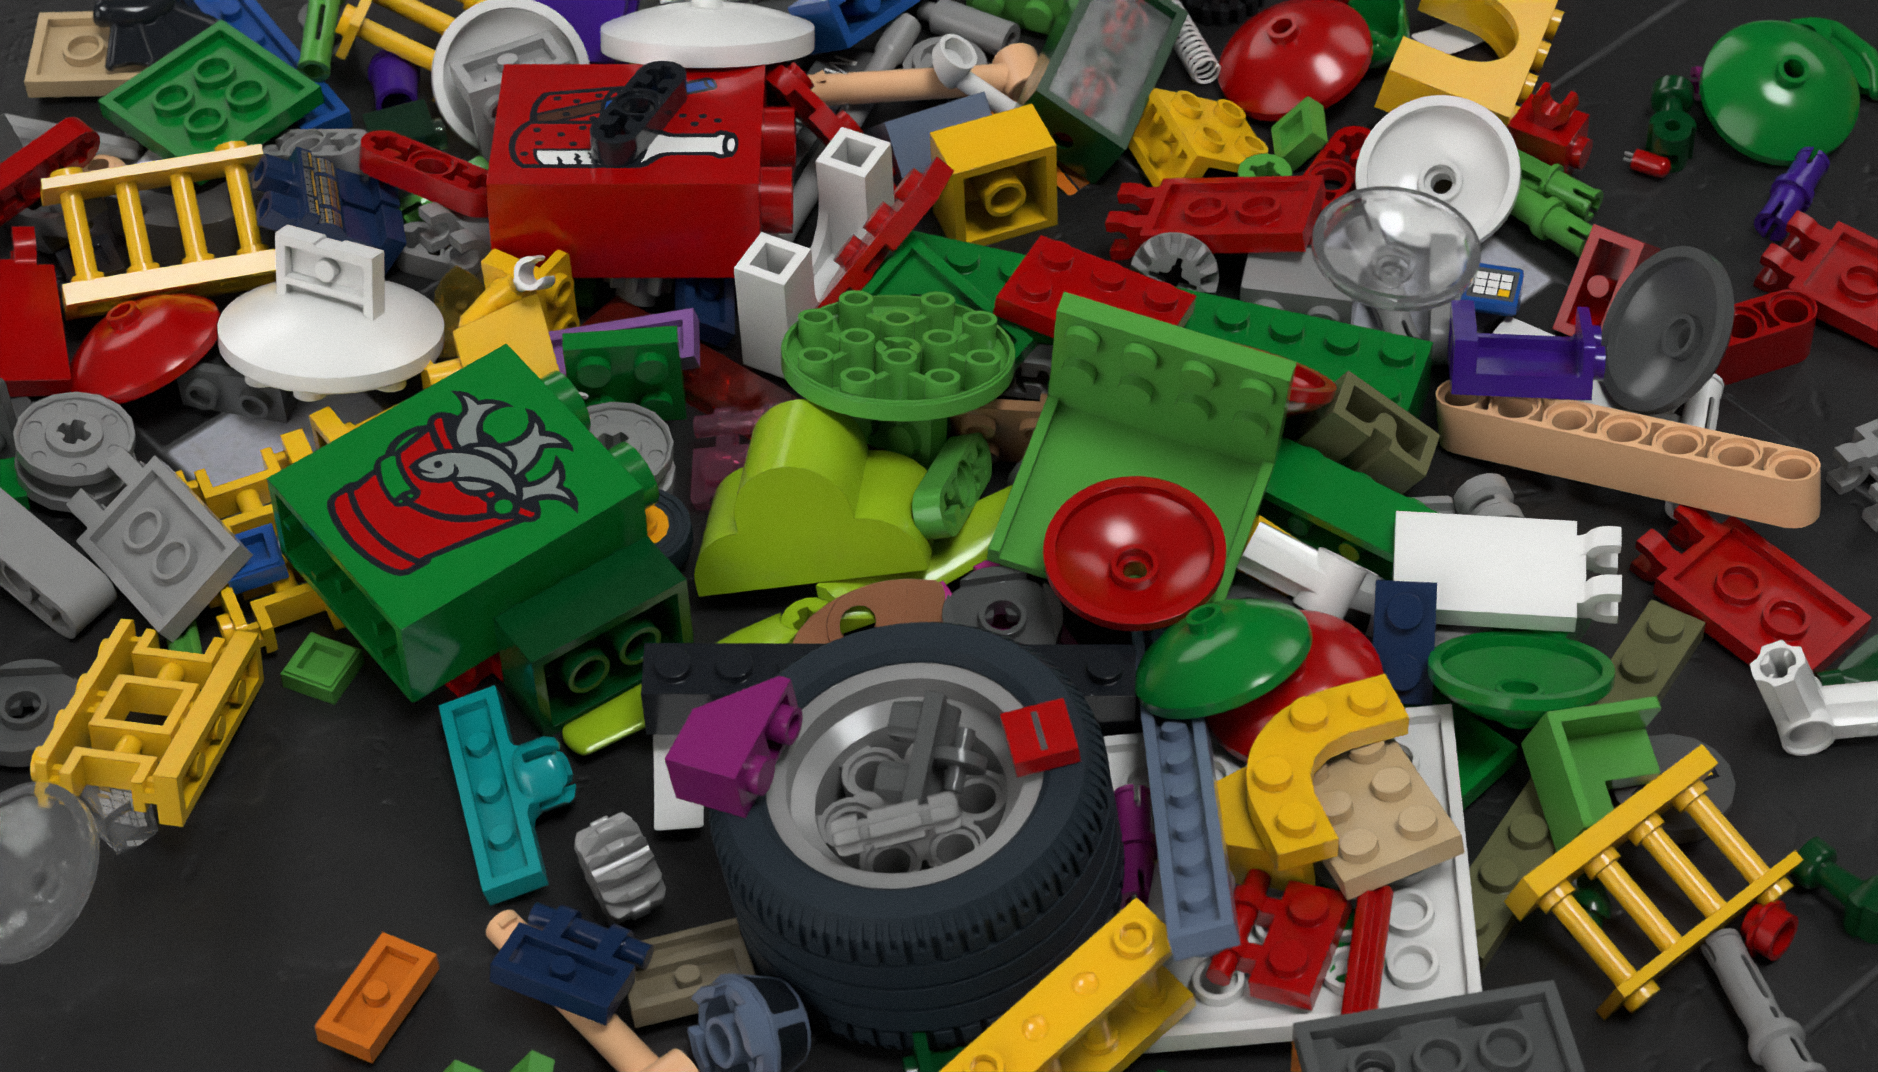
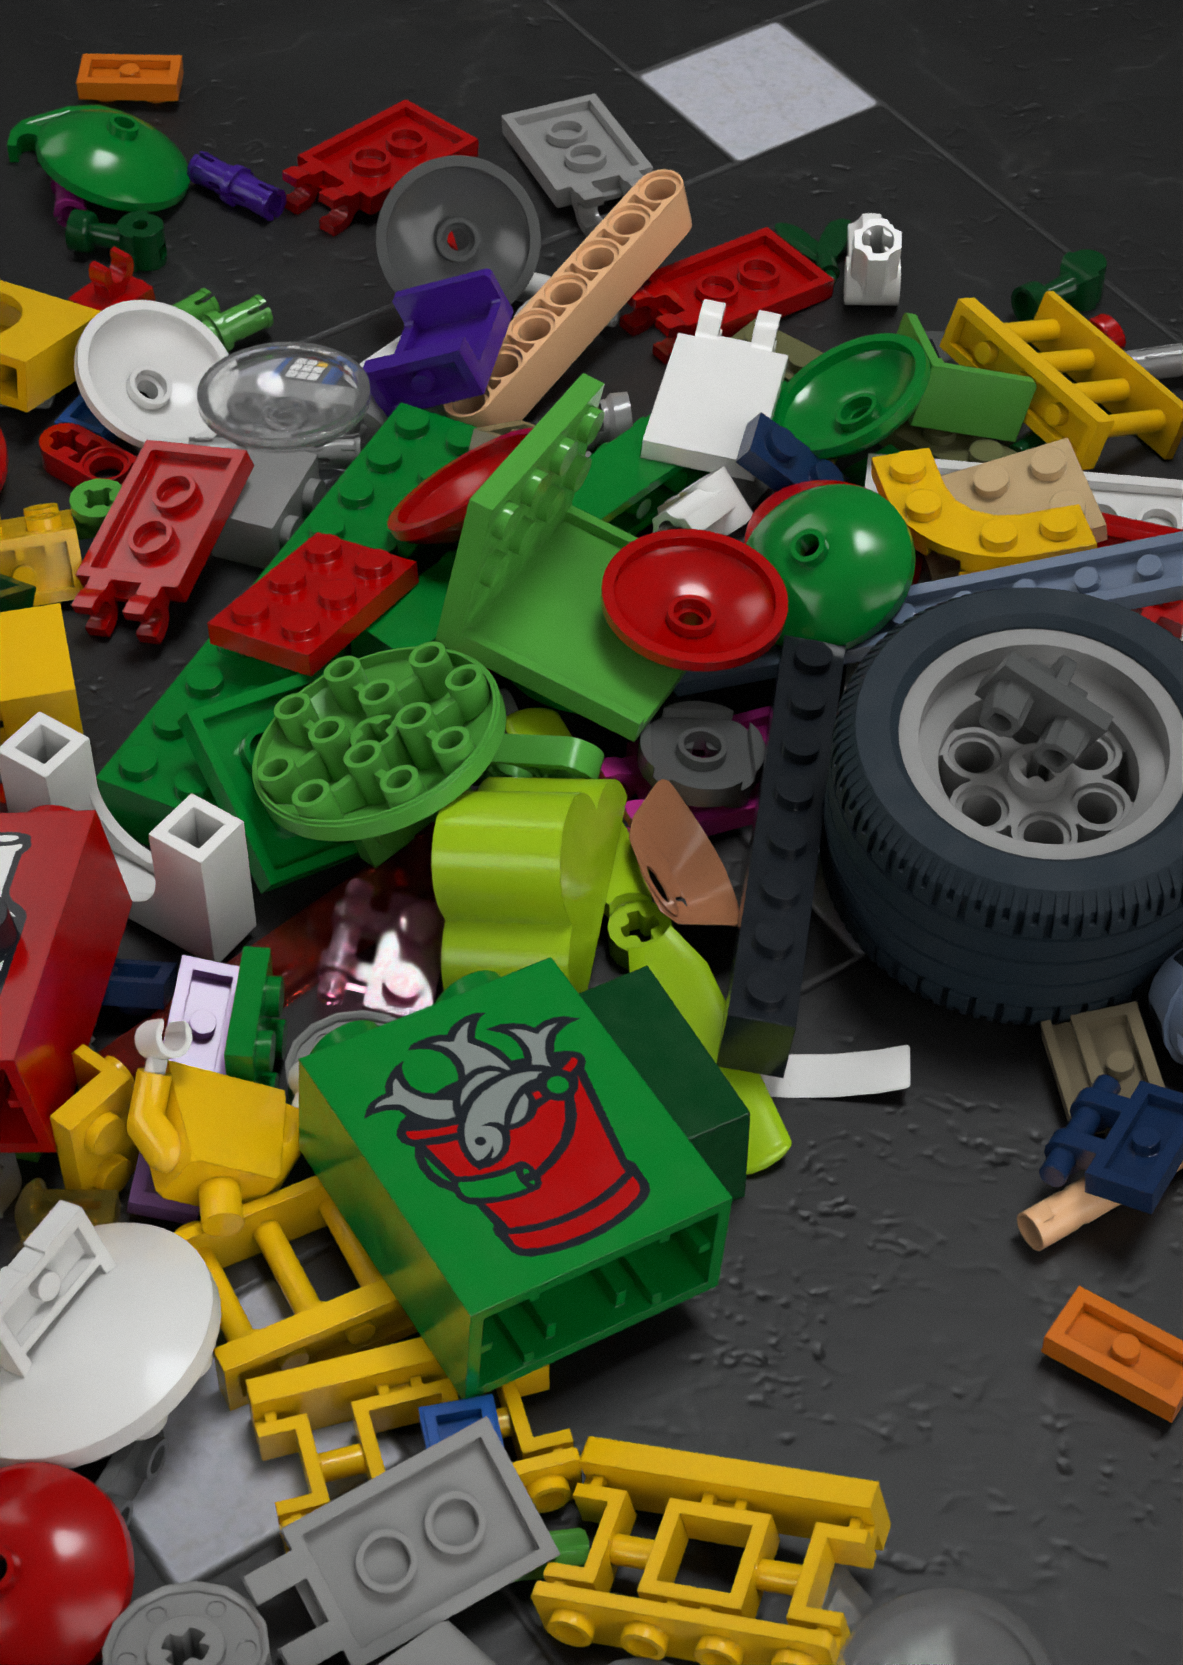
camera: 85 degrees left, 0 degrees up
(322, 668) = (607, 1403): bright green tile -> none
(503, 791) = (851, 1217): teal plate -> none
(620, 867) = (985, 1101): light grey gear -> none
(732, 746) = (1025, 850): magenta slope -> none
(886, 229) = (159, 738): red wing -> none
(896, 824) = (1135, 736): light grey axle -> none
(1040, 737) = (1044, 611): red tile -> none
(1162, 252) = (218, 568): light grey gear -> none
(1300, 133) = (36, 475): bright green plate -> none
(1600, 274) = (327, 304): red slope -> none
(1648, 163) = (157, 265): red piece -> none

